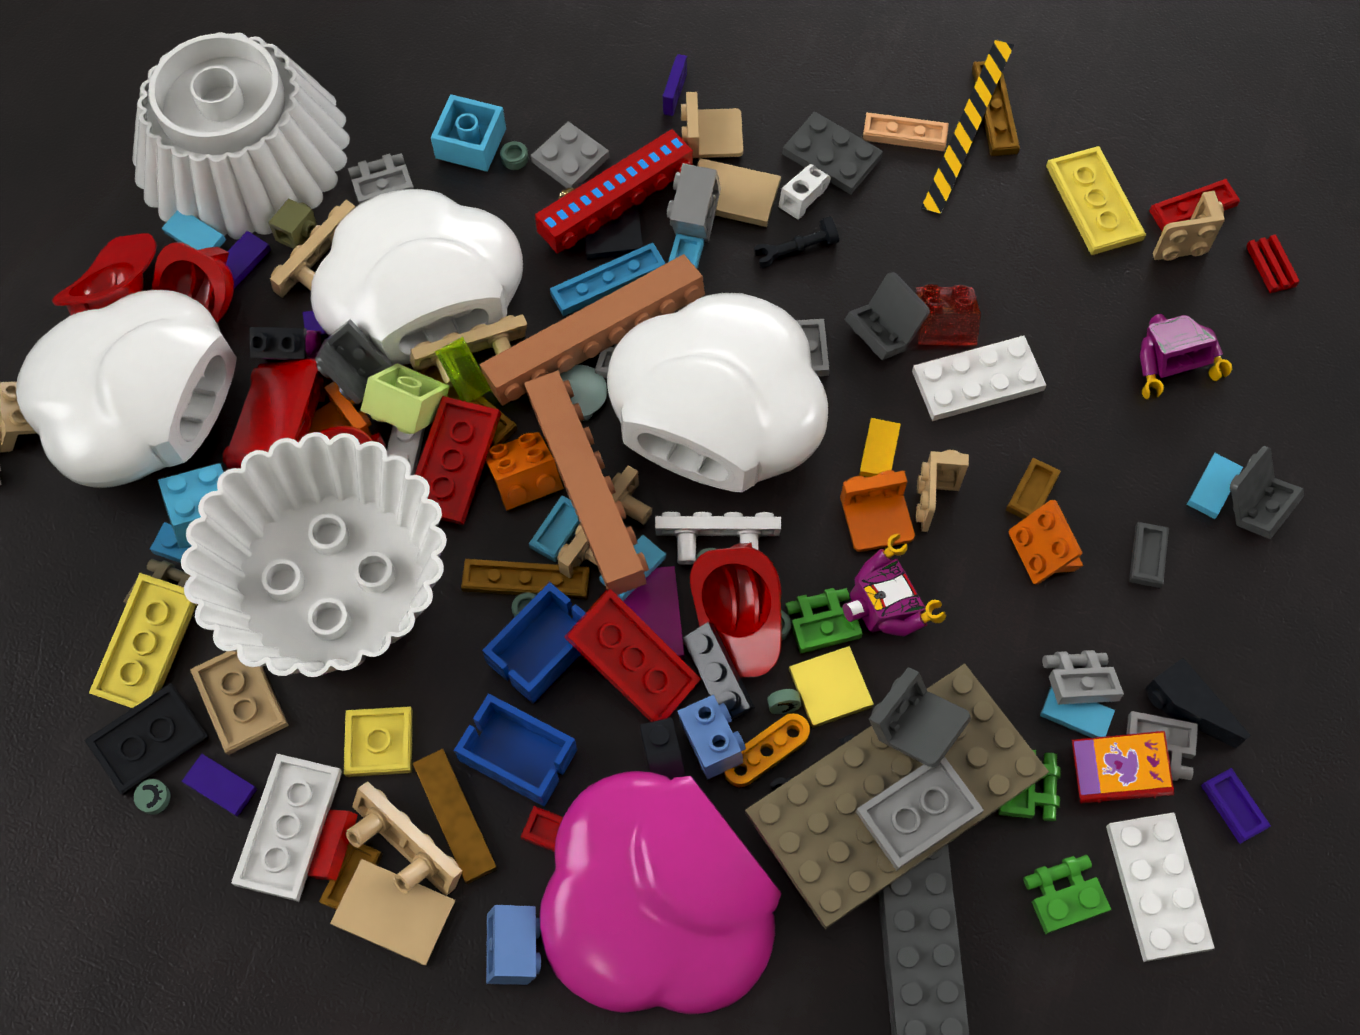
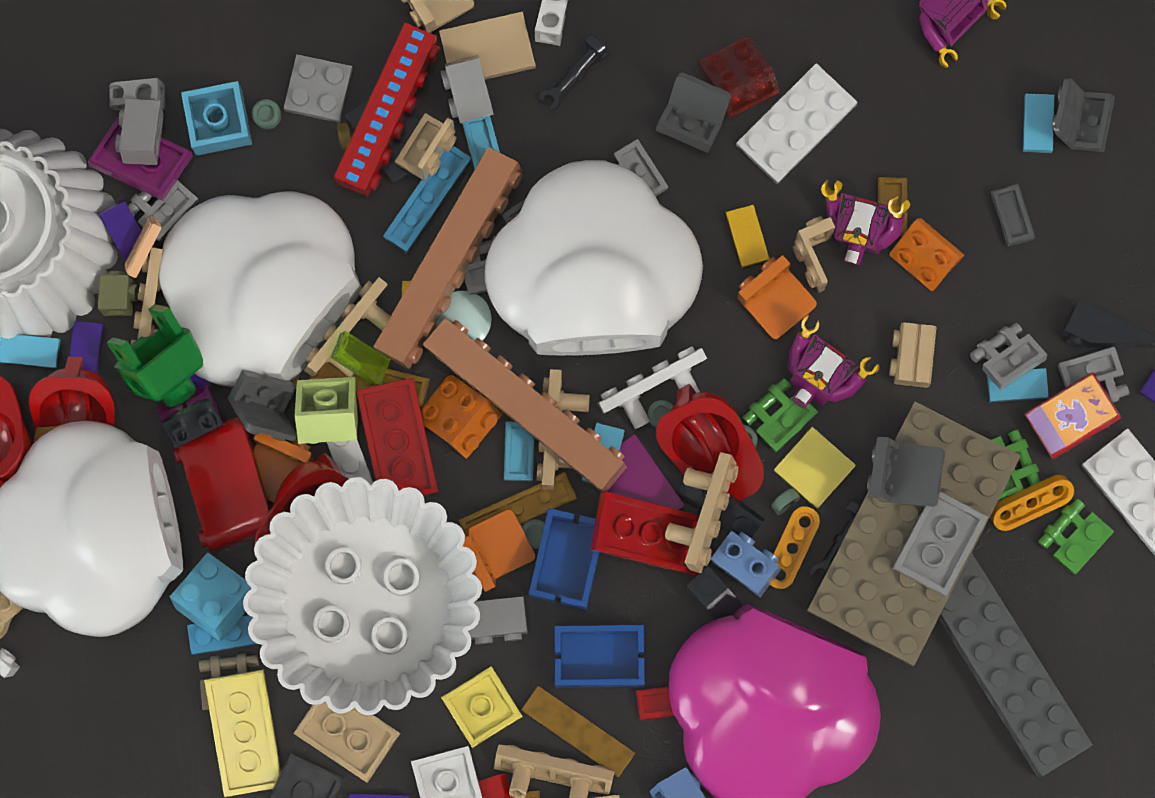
camera: 25 degrees left, 15 degrees up
(286, 286) = (161, 363): none -> green piece
(334, 179) = (121, 226): none -> dark purple tile
(346, 190) = (142, 246): none -> light nougat tile
(386, 135) = (151, 179): none -> magenta tile
(398, 110) = (140, 131): none -> light grey brick
(419, 90) = (136, 89): none -> light grey leg
(441, 664) = (500, 619): none -> light grey brick
(479, 596) = (498, 546): none -> orange bracket
(633, 233) = (426, 146): none -> tan bracket
(693, 674) = (708, 524): none -> tan plate
(986, 629) = (914, 354): none -> tan brick
(997, 485) = (862, 222): none -> torso
(1048, 840) = (1043, 501): none -> light orange plate

